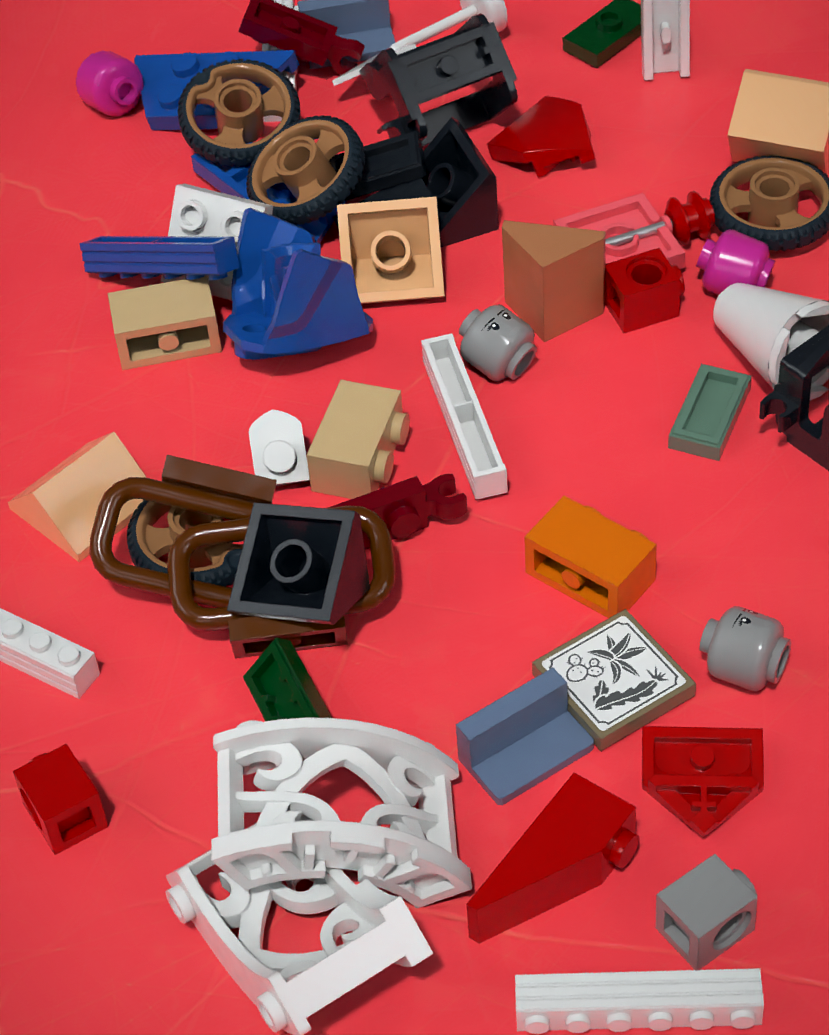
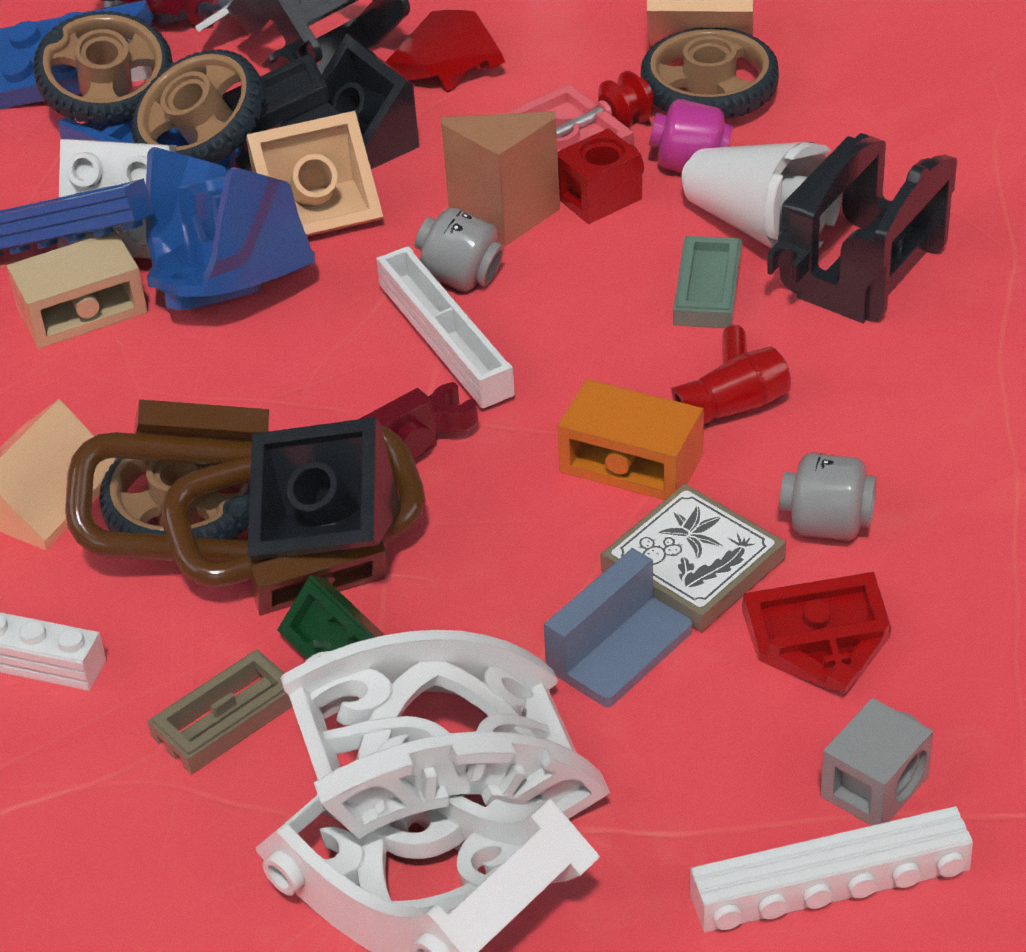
camera: 15 degrees left, 5 degrees down
(60, 798) = (105, 792): red brick -> none
(184, 747) = (231, 716): none -> dark tan tile
(279, 448) = (250, 381): white plate -> none
(357, 440) = (335, 366): tan brick -> none
(557, 858) = (696, 741): red slope -> none
(702, 522) = (741, 383): none -> red piece

